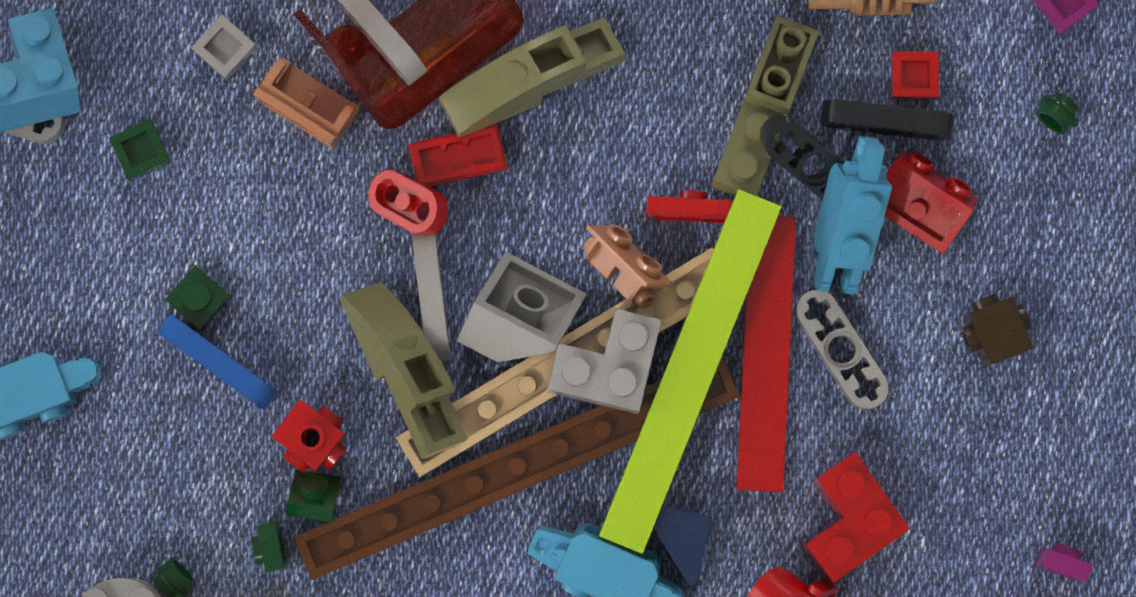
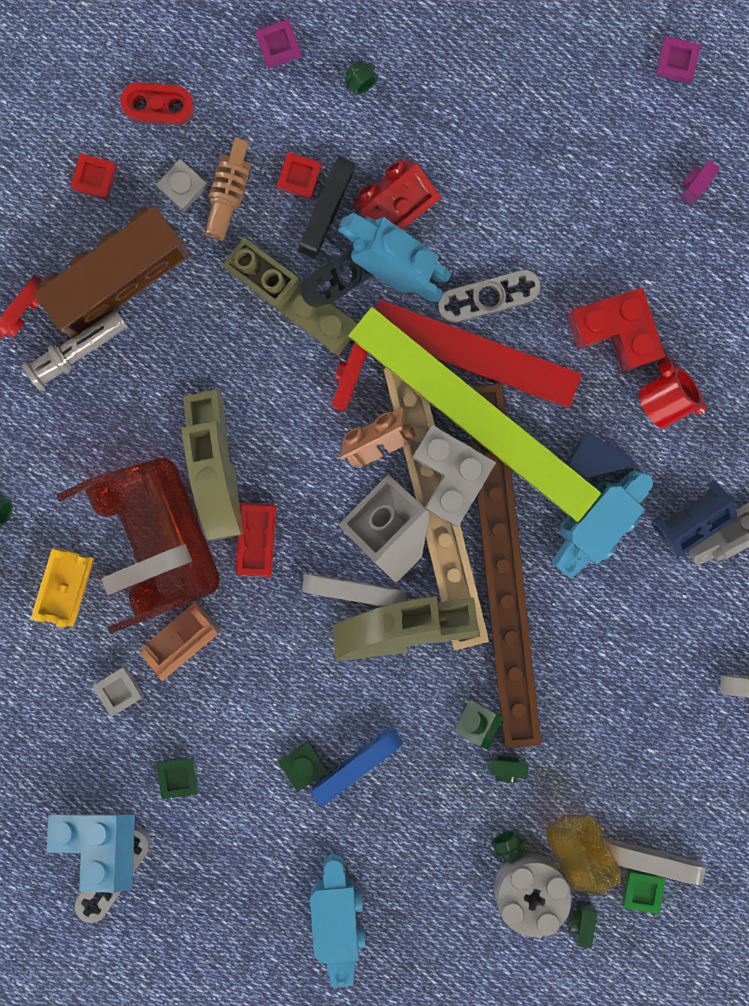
camera: 70 degrees left, 5 degrees up
(294, 433) = (431, 726): red brick -> none
(410, 205) = (282, 585): red plate -> none
(996, 329) = (511, 175): dark brown brick -> none

